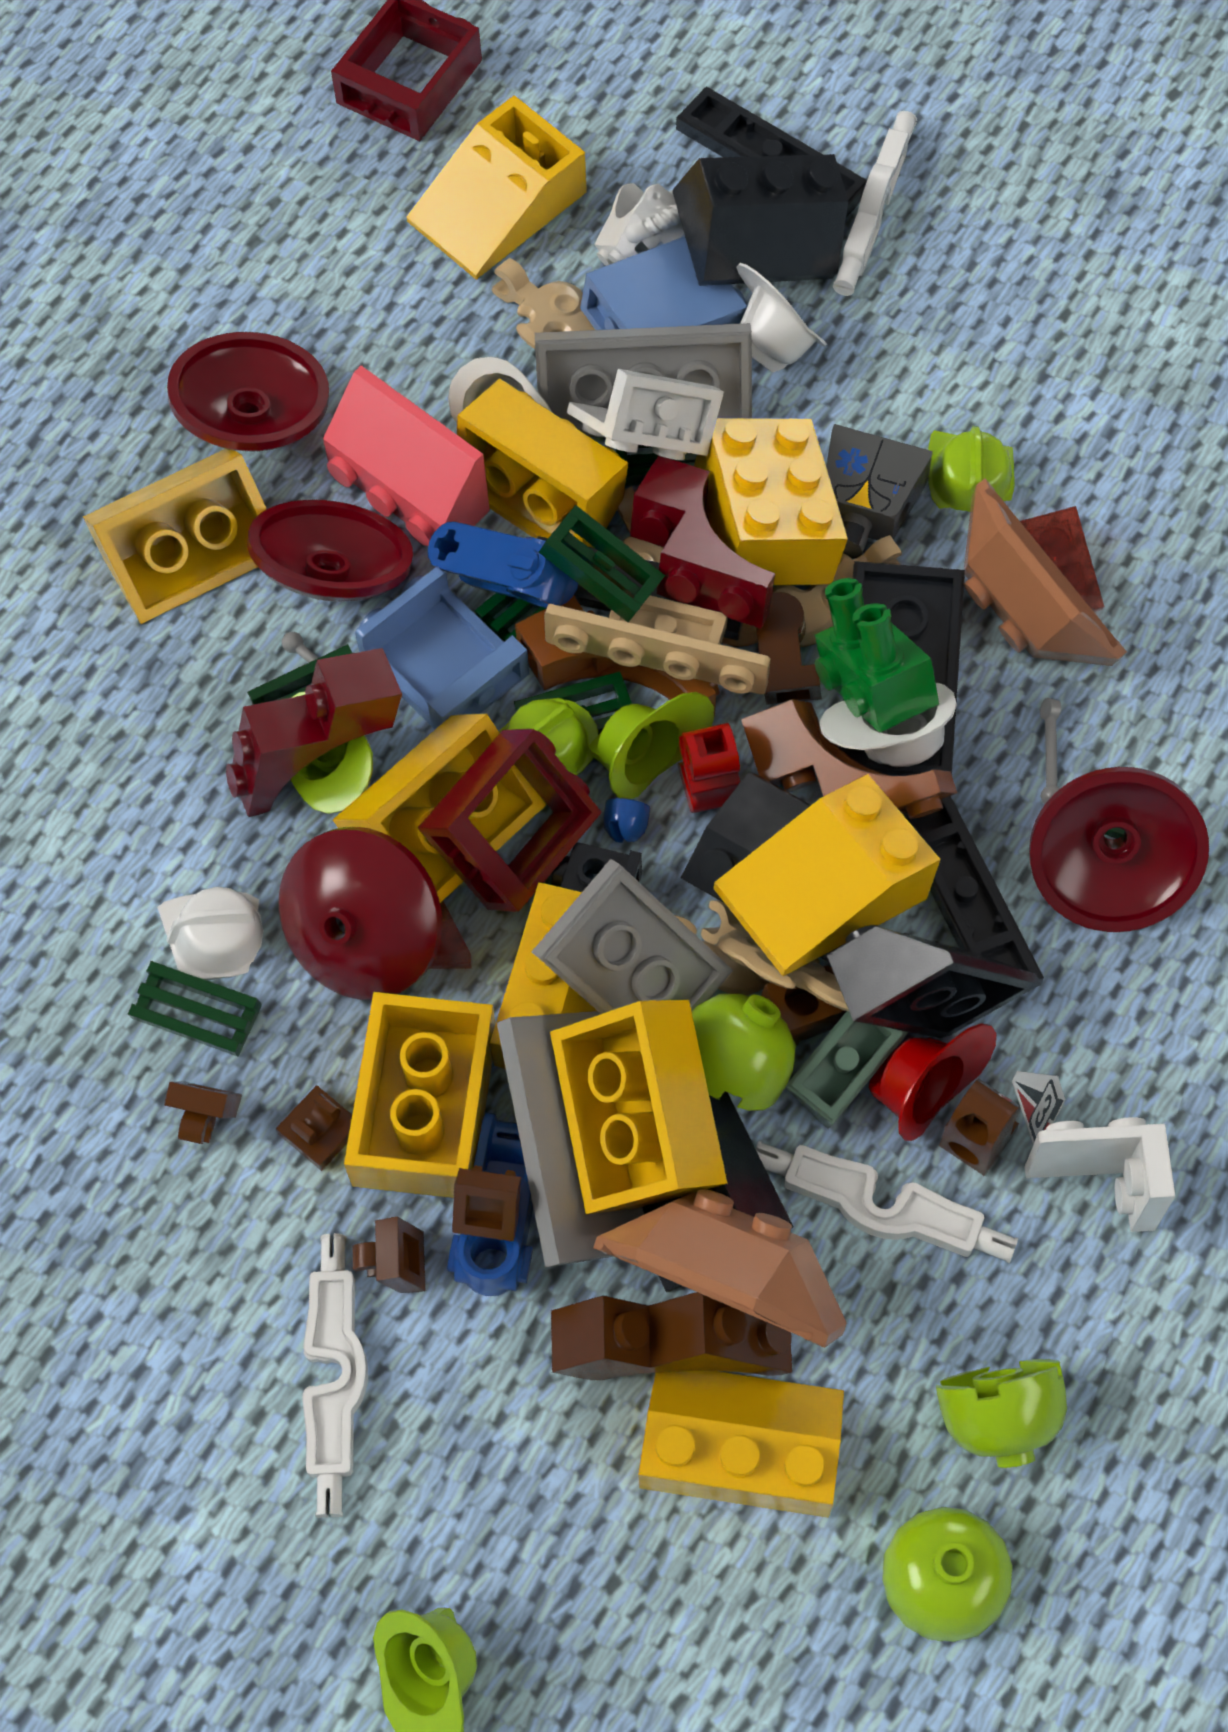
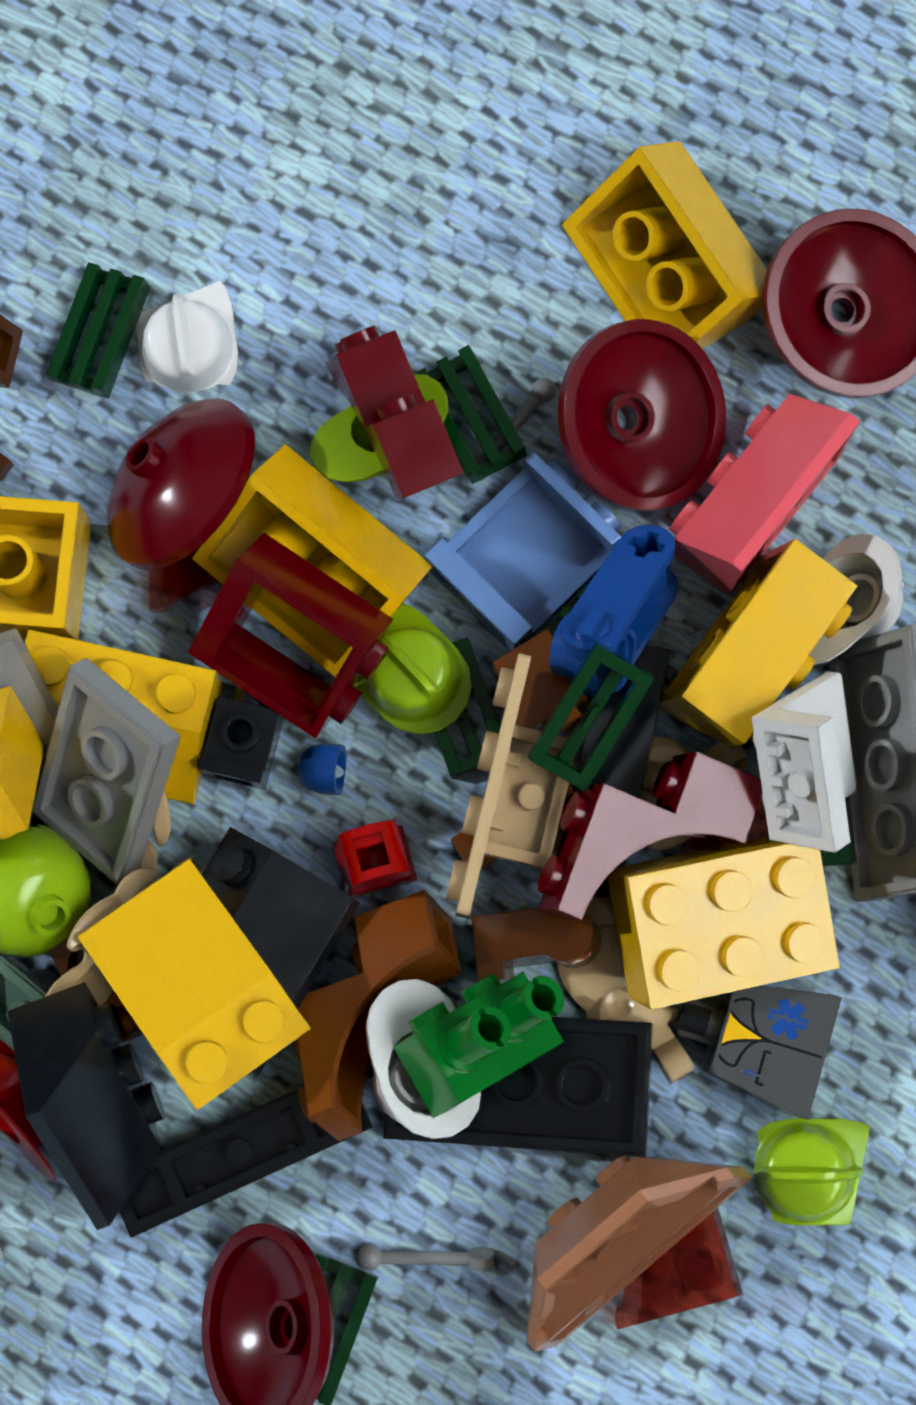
camera: 90 degrees right, 15 degrees up
(645, 741) = (414, 781): lime piece -> none

